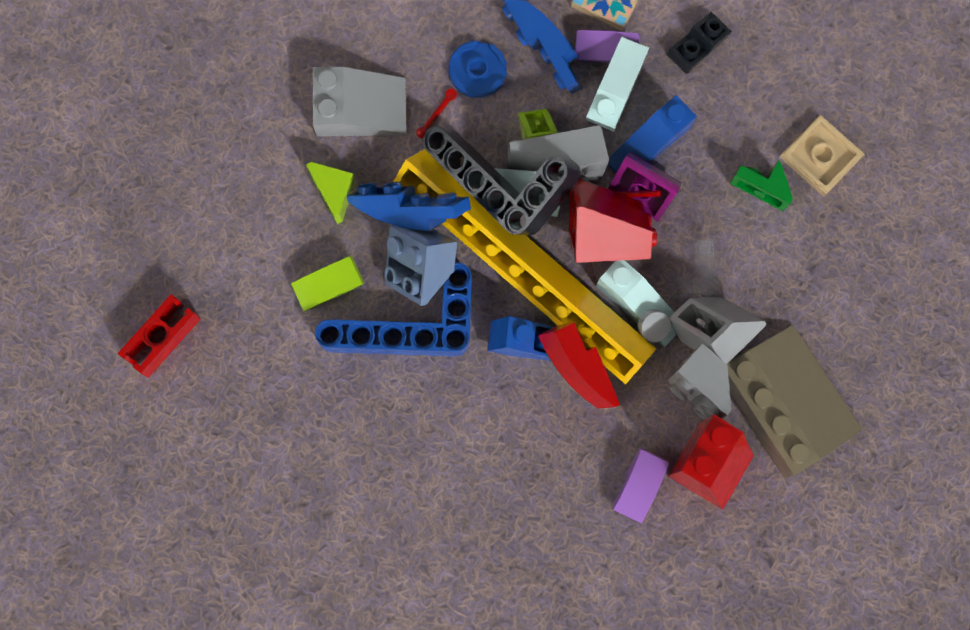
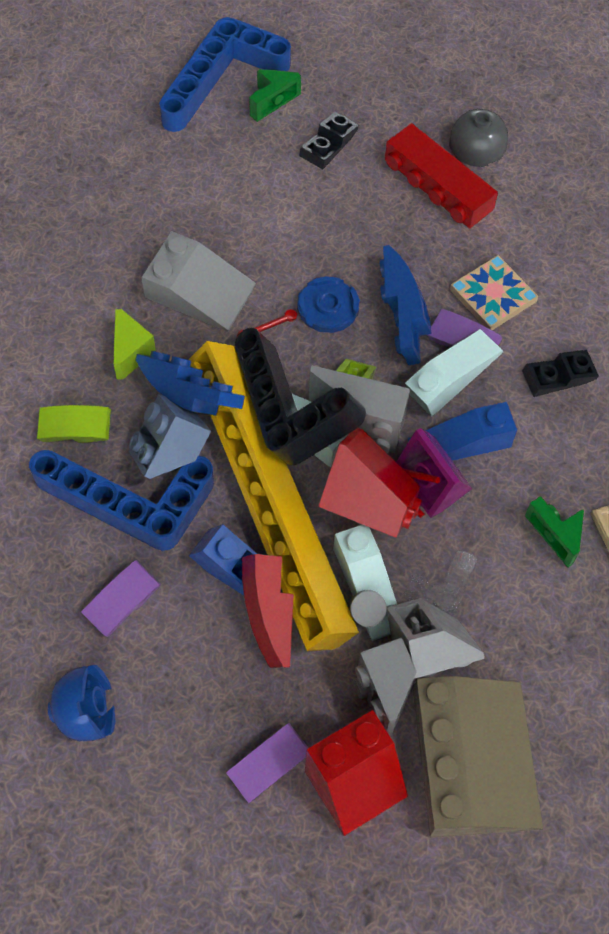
camera: 30 degrees right, 15 degrees down
(454, 413) = (120, 598): none -> medium lavender slope
(475, 517) = (79, 702): none -> blue cylinder

